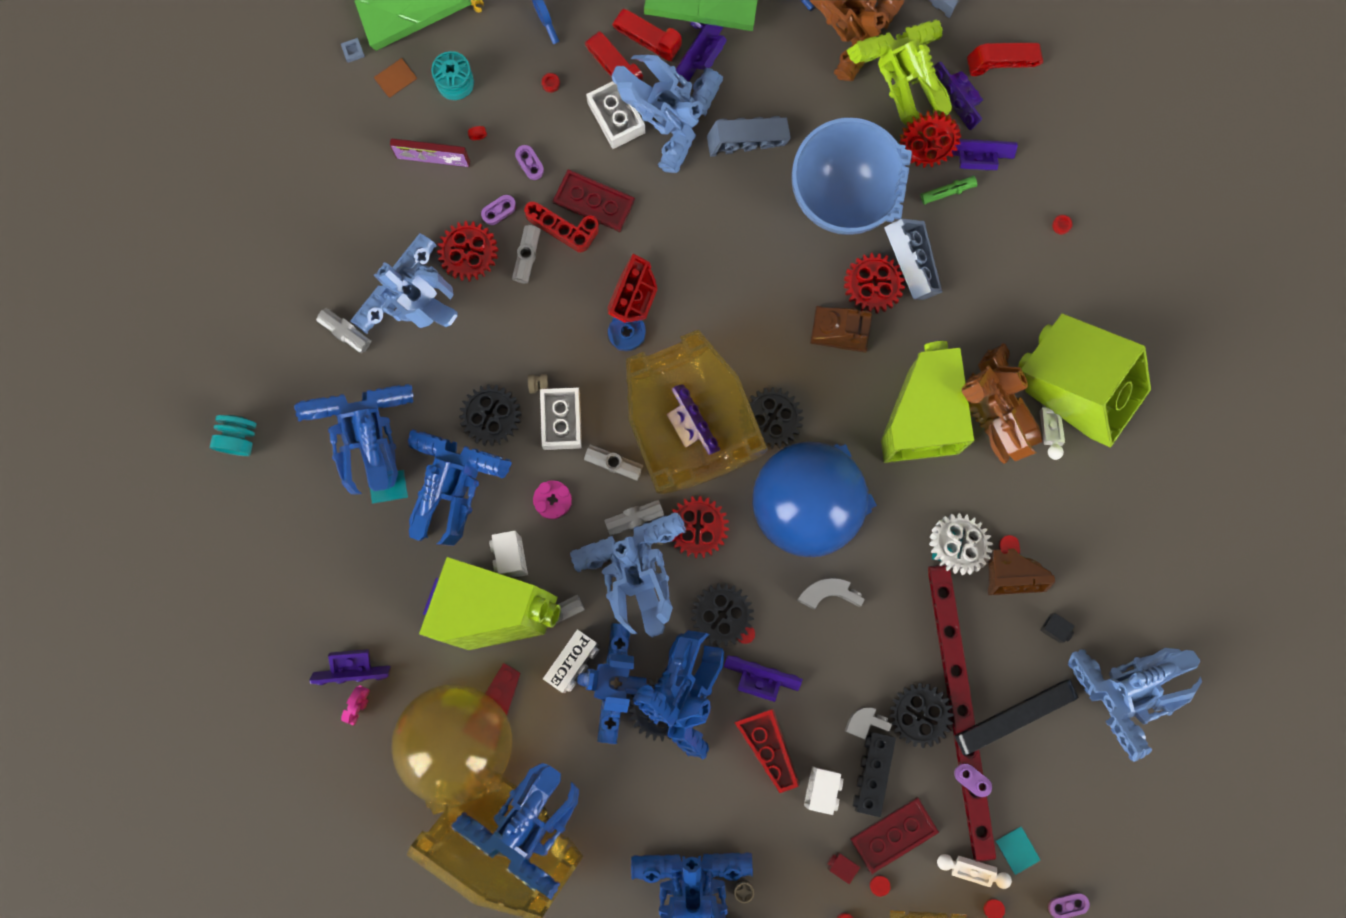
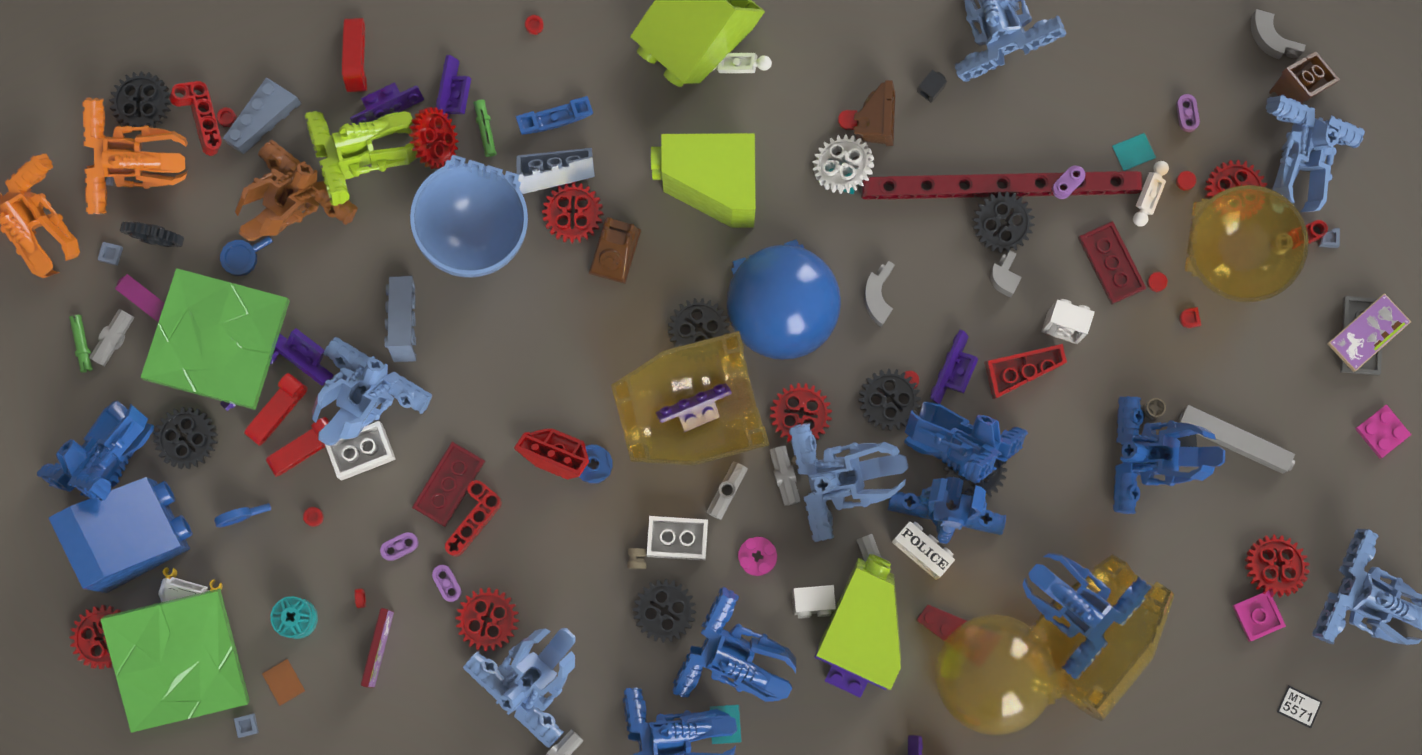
camera: 85 degrees left, 0 degrees up
(528, 243) = (511, 562): light grey piece -> none
(842, 867) = (1138, 313): dark red brick -> none
(875, 774) = (1055, 273): black brick -> none
(969, 254) = (554, 117): none -> blue slope
(998, 409) = (714, 108): dark orange piece -> none
(1016, 716) = (1013, 134): black beam -> none

